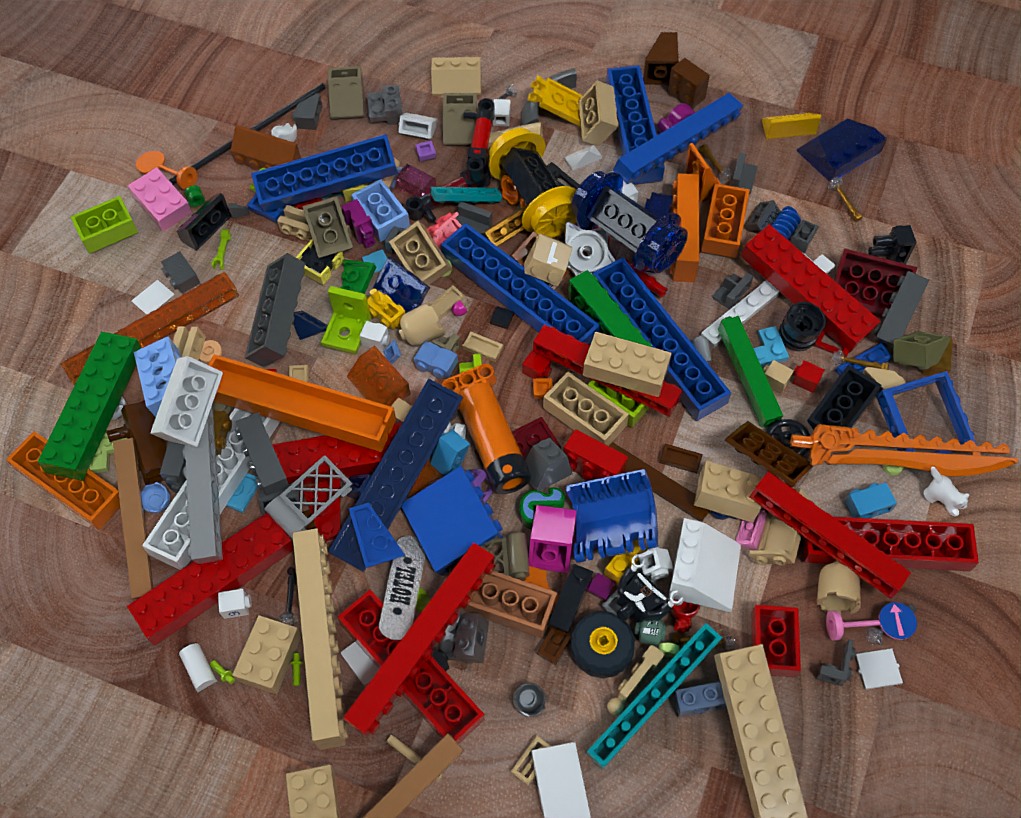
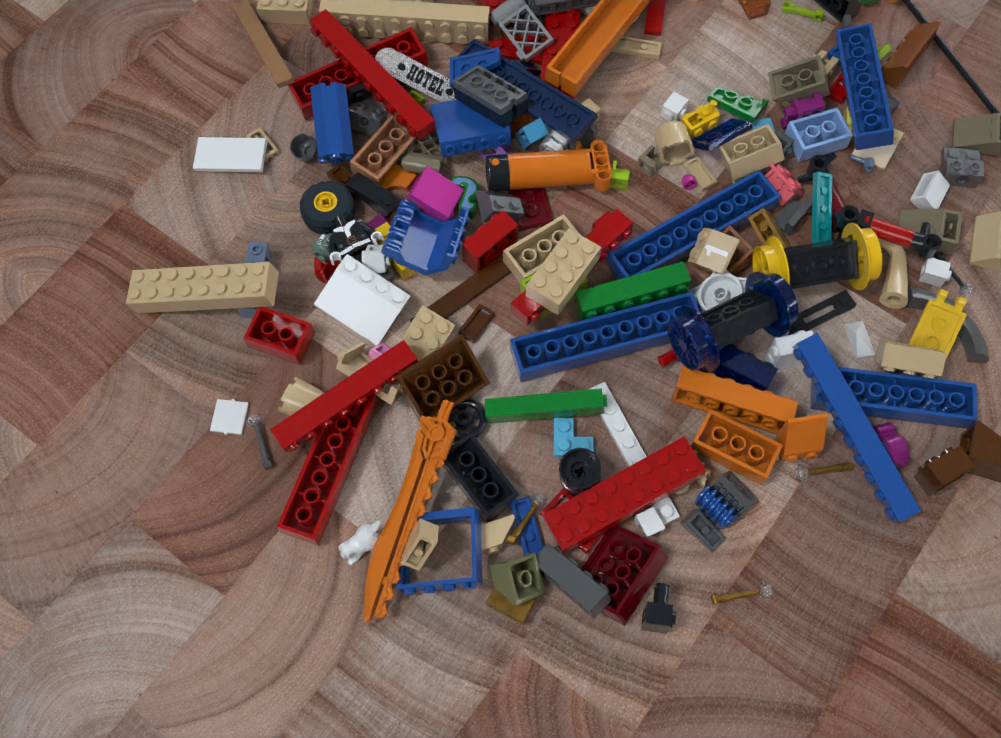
camera: 105 degrees right, 5 degrees up
(275, 310) = (718, 33): dark grey brick -> none
(285, 132) = (935, 74): white hair -> none
(307, 325) = (702, 63): dark blue slope -> none
(308, 113) = (963, 99): dark grey slope -> none
(319, 268) = (759, 78): piece -> none
(350, 315) = (698, 86): lime bracket -> none
(378, 378) = (627, 105): clear orange slope -> none
(392, 352) = (653, 121): medium blue slope -> none
(406, 751) = (302, 67): tan bar -> none
(414, 181) = (852, 173): clear pink brick -> none
(421, 497) = (490, 95): none -> dark grey piece
(425, 150) = (892, 192): medium lavender plate -> none
(435, 360) = (632, 149): medium blue brick -> none
(481, 345) = (642, 193): tan tile -> none
(500, 664) = (332, 123): none -> blue brick
(502, 317) = (668, 213): black tile -> none
(541, 387) = (583, 226): orange plate -> none
(650, 661) = (301, 237): tan plate -> none
(653, 696) = (271, 230): teal brick -> none
(669, 649) = (305, 257): yellowish green tile -> none
(703, 347) = (584, 376): light grey cone -> none
(727, 642) = (293, 302): piece -> none
(733, 289) = (649, 430): dark grey panel -> none
(744, 174) = (800, 494): dark grey panel -> none
(778, 375) = (534, 433): tan brick -> none
(791, 125) = (868, 574): yellow slope -> none
(807, 376) = (525, 462): red brick -> none
(838, 677) = (237, 372): dark grey bracket -> none
(843, 148) = (819, 620): clear blue slope -> none
(871, 501) = (375, 467): dark azure brick -> none
(894, 619) = (259, 442): piece -> none
(935, 424) = (420, 544): none -> tan slope

